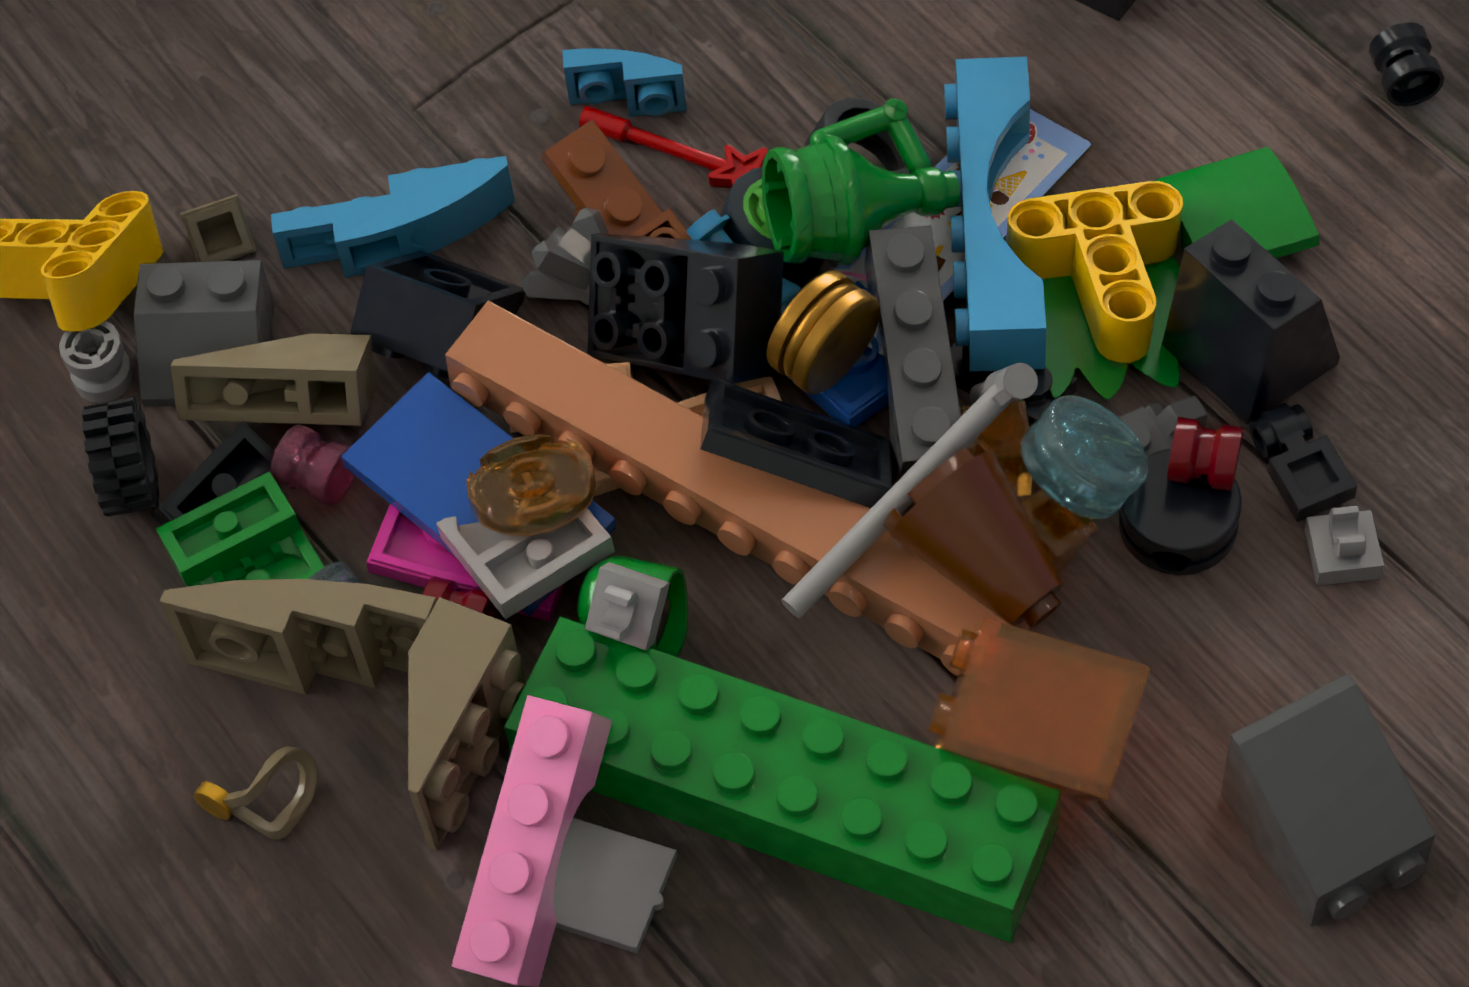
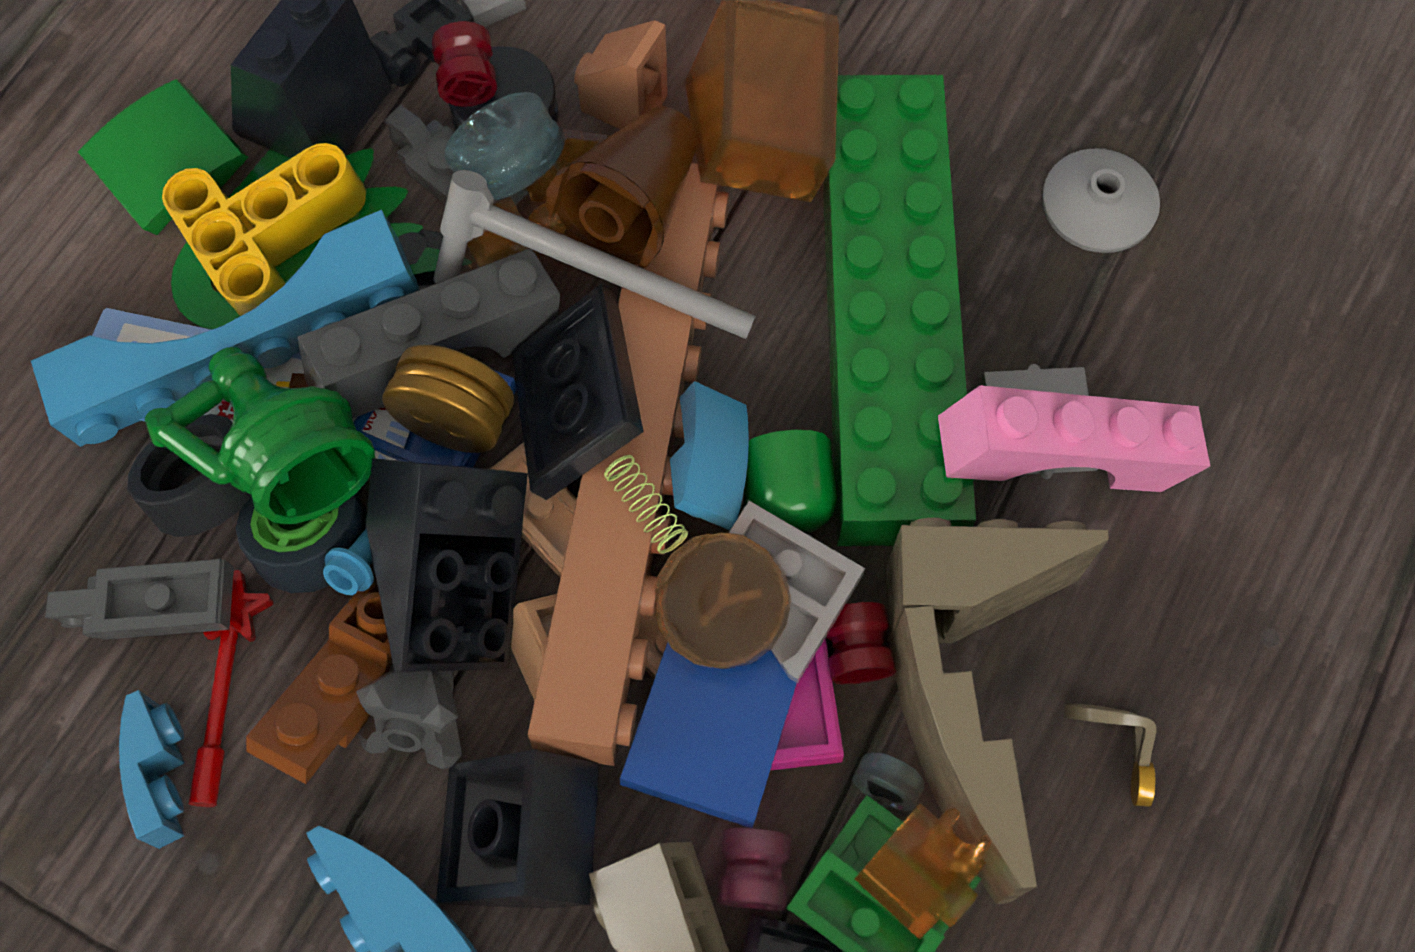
camera: 120 degrees left, 10 degrees up
(231, 555) = (925, 871): none -> clear orange brick
(627, 606) = (822, 450): light grey tile -> none
(673, 526) = (713, 461): none -> dark azure slope
(686, 432) = (680, 539): none -> yellowish green piece
(766, 105) = (148, 600): none -> dark grey hinge
(1152, 616) = (624, 74): none -> nougat slope

